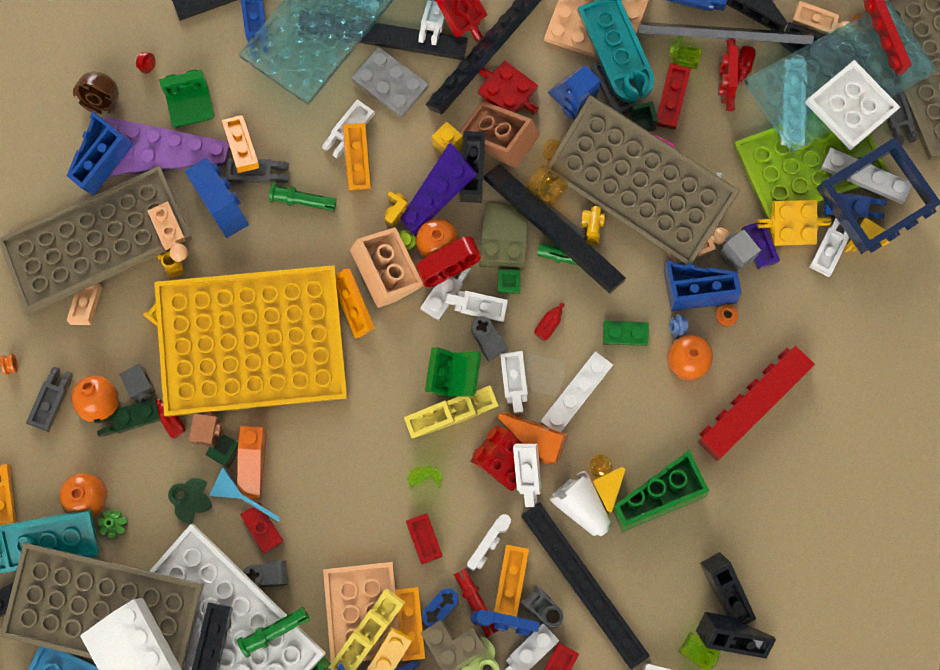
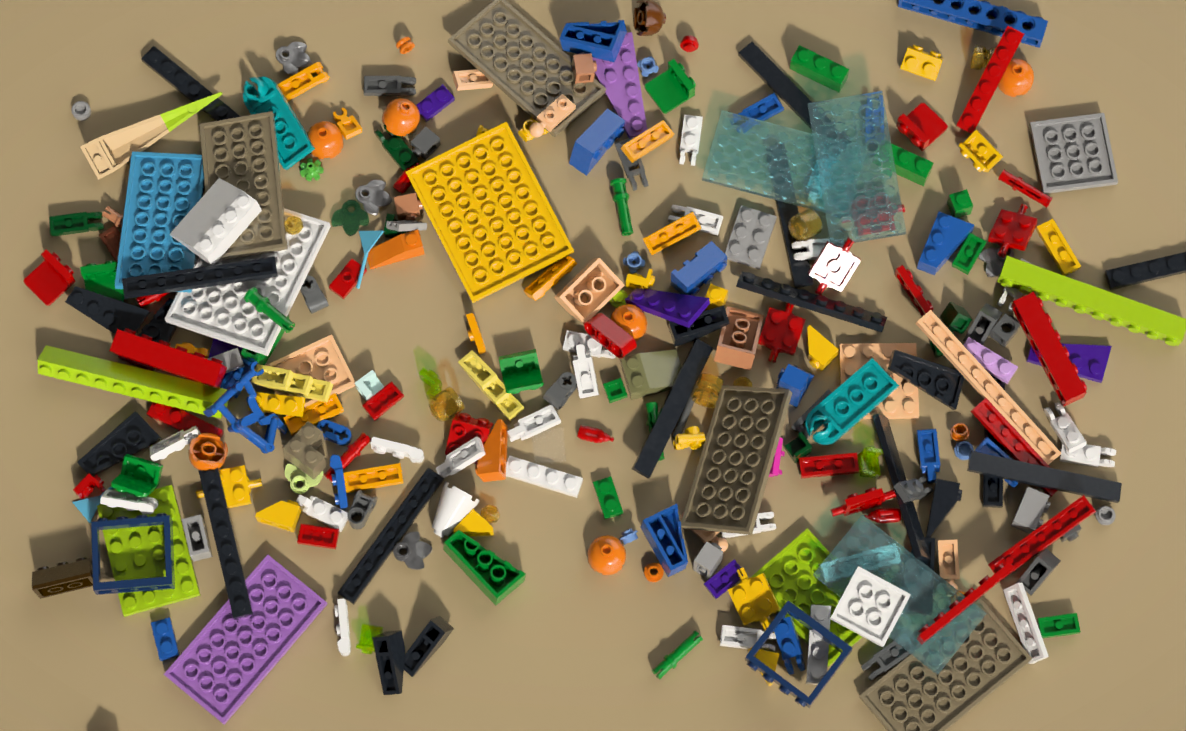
camera: 70 degrees right, 5 degrees down
(77, 462) = (348, 125): none -> light orange plate
(92, 355) = (435, 103): none -> dark purple plate
(126, 178) = (583, 68): none -> nougat brick
(150, 109) = (647, 61): none -> medium blue plate
(177, 461) = (376, 196): none -> flat silver plate
(177, 566) = (293, 225): none -> clear yellow plate
(229, 438) = (407, 225): none -> light grey tile
(253, 101) = (690, 137): none -> white hinge
(370, 204) = (634, 256): none -> medium blue plate
(385, 408) = (474, 333): none -> light orange plate
(401, 547) = (368, 385): none -> light aqua panel
(403, 19) = (805, 225): none -> clear yellow helmet
(409, 145) = (699, 270): none -> wedge
(457, 470) = (443, 405): none -> clear yellow helmet
(542, 59) = (819, 349): none -> yellow slope
(613, 564) = (415, 549): none -> flat silver plate
(734, 20) = (912, 489): none -> dark grey hinge
(755, 403) = (587, 618): red brick -> none
(826, 323) = (671, 660): none -> green pin

